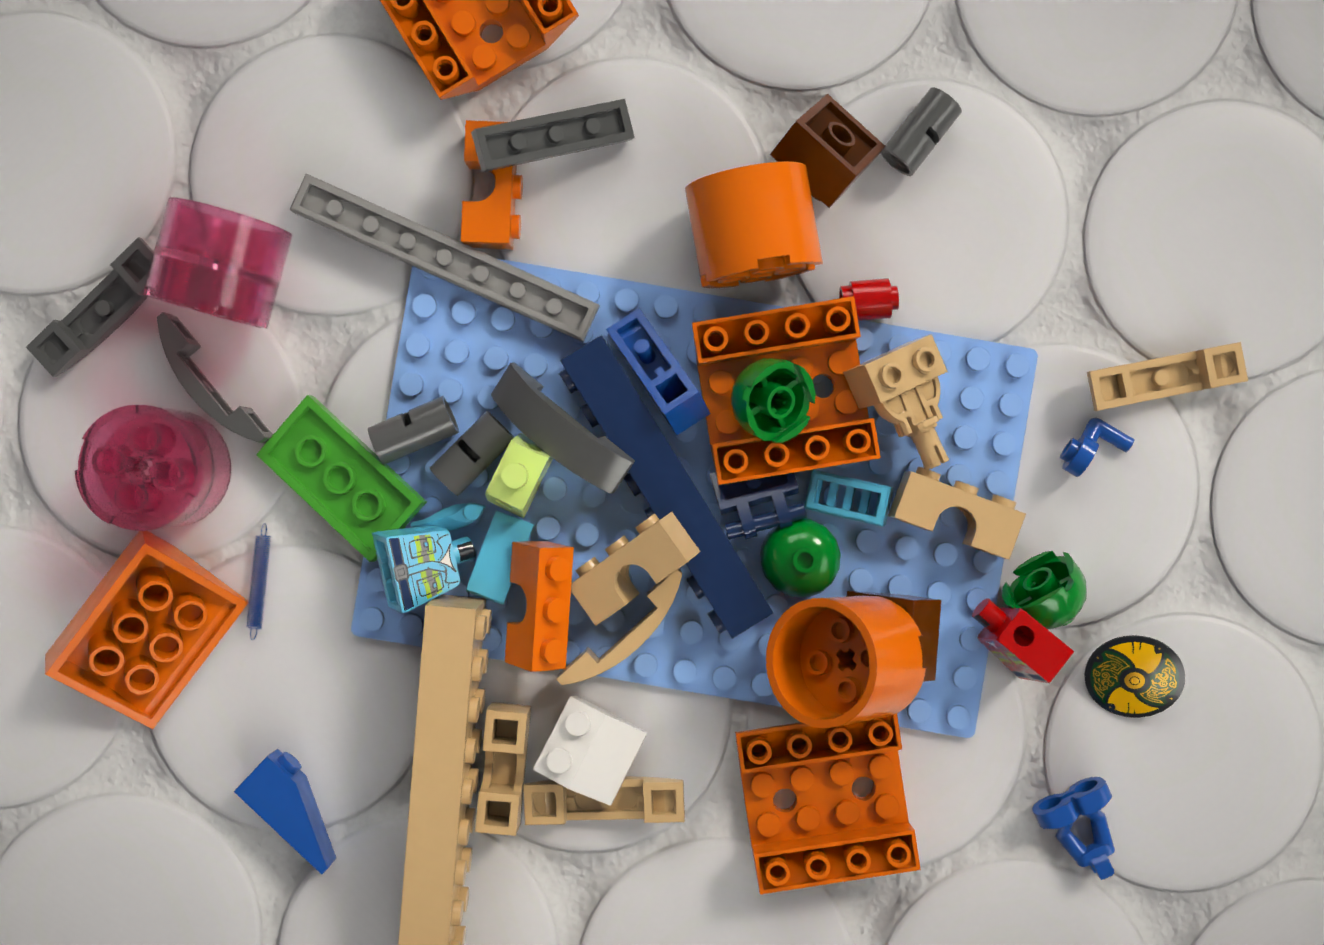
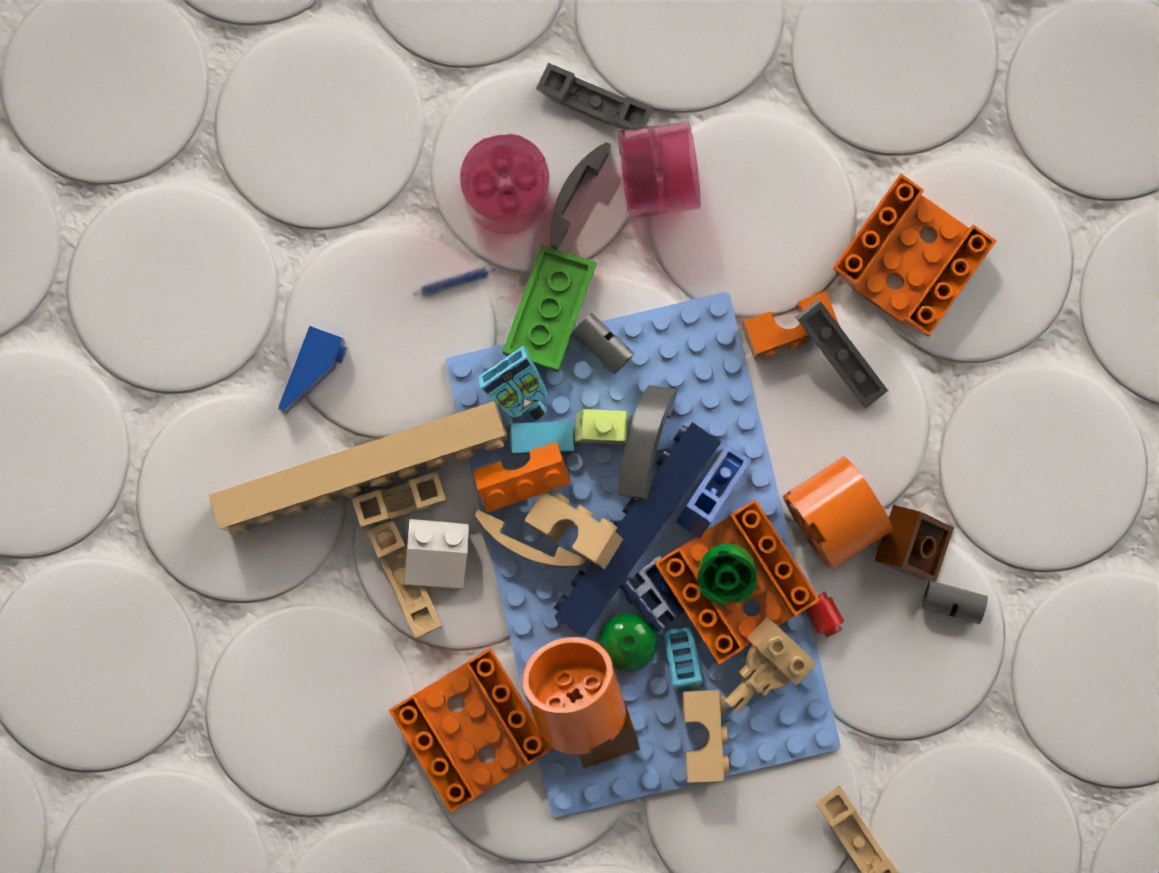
camera: 60 degrees right, 5 degrees down
(144, 630) = (391, 220): orange slope -> none
(444, 257) = (728, 316): light grey tile -> none
(453, 516) = (555, 394): medium azure bar -> none
(472, 453) = (604, 389): dark grey pin -> none
(1021, 642) = (635, 827): red torso -> none
(1048, 589) = (675, 823): green cylinder -> none
(1080, 453) = (782, 805): blue plate -> none

